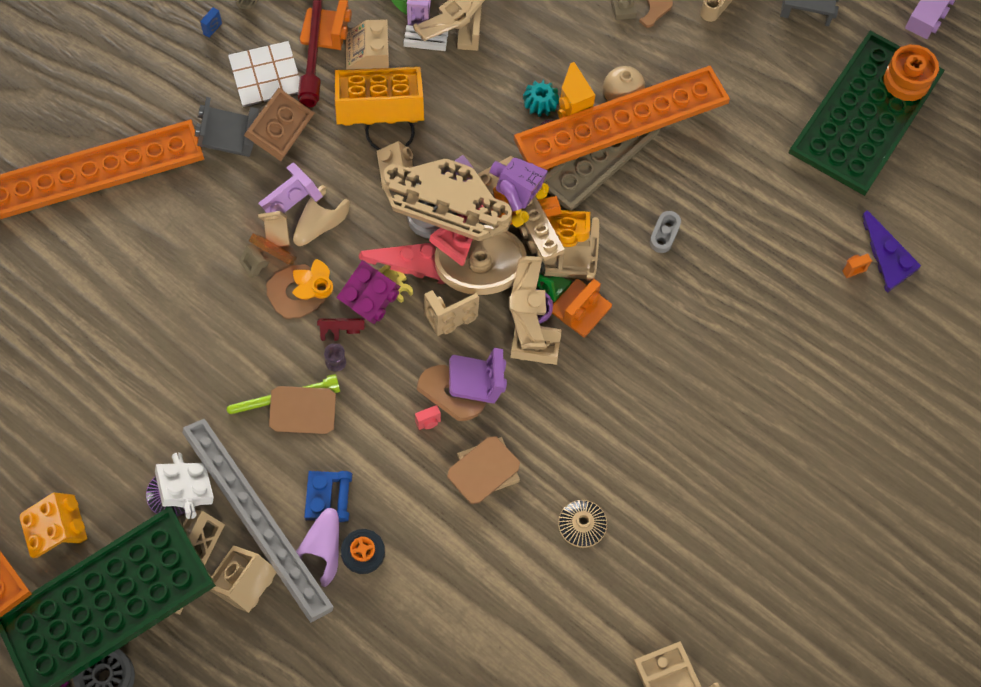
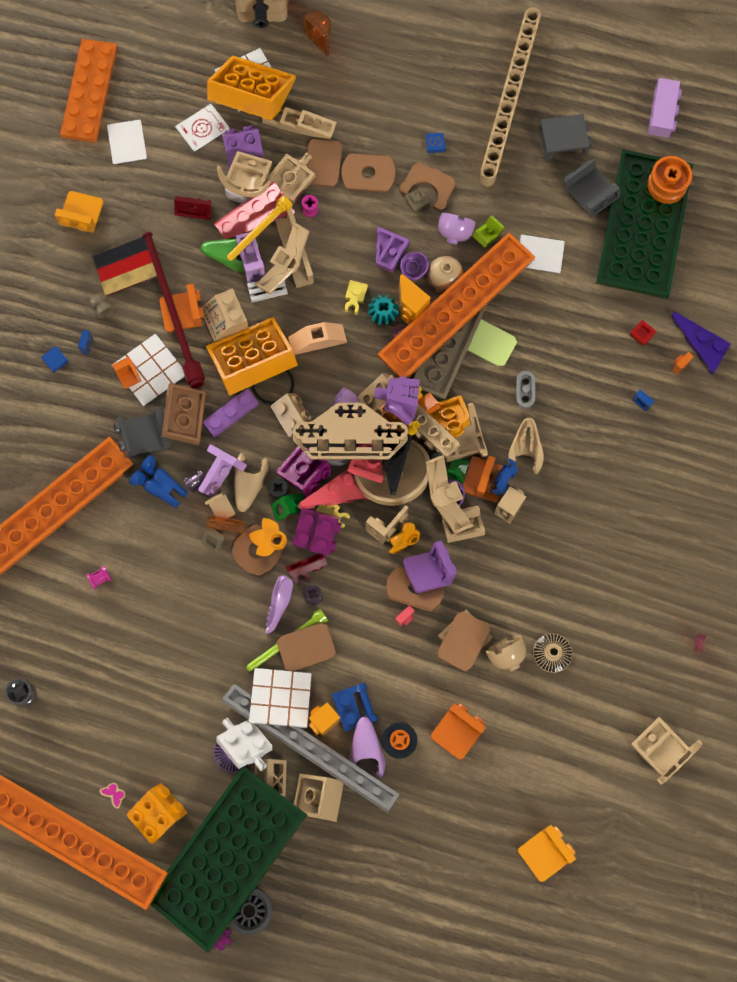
camera: 20 degrees left, 10 degrees up
(18, 488) = (116, 794): none -> dark pink sticker
(111, 254) = (98, 577): none -> dark pink bush
(172, 29) = (54, 359): none -> blue tile
(221, 186) = (160, 484): none -> blue piece
(239, 64) = (127, 373): none -> orange panel
(248, 452) = (280, 698): none -> white piece
(259, 194) = (188, 481): none -> clear purple bush
(284, 492) = (323, 719): none -> light orange brick
(294, 350) = (279, 601): none -> lavender animal
(331, 143) = (230, 413): none -> medium lavender plate
(345, 241) = (278, 492): none -> pearl dark grey wheel
(350, 255) = (289, 504): none -> green bracket
(383, 226) = (303, 472): none -> magenta plate
(435, 566) = (458, 731): none -> orange bracket
(457, 99) = (317, 337): none -> light nougat slope
(463, 333) = (407, 537): none -> light orange plate
(486, 249) = (395, 465): none -> black wing
(517, 74) = (356, 294): none -> light yellow plate
(529, 502) = (508, 653): none -> tan cylinder
(574, 43) = (390, 249): none -> medium lavender wing
(593, 66) = (414, 265): none -> medium lavender hair
(597, 340) = (510, 504): none -> tan brick
(601, 306) = (504, 476): none -> blue plate
(642, 287) = (528, 444): none -> tan animal
(647, 174) = (492, 343): none -> yellowish green piece
(653, 43) = (455, 228): none -> lavender cylinder
(688, 62) = (488, 232): none -> lime bracket
(743, 107) = (547, 253): none -> white sticker
(762, 576) = (700, 641): none -> clear pink tile
(795, 288) = (643, 400): none -> blue tile
(819, 55) = (591, 188): none -> dark grey panel
(822, 220) = (642, 333): none -> red plate

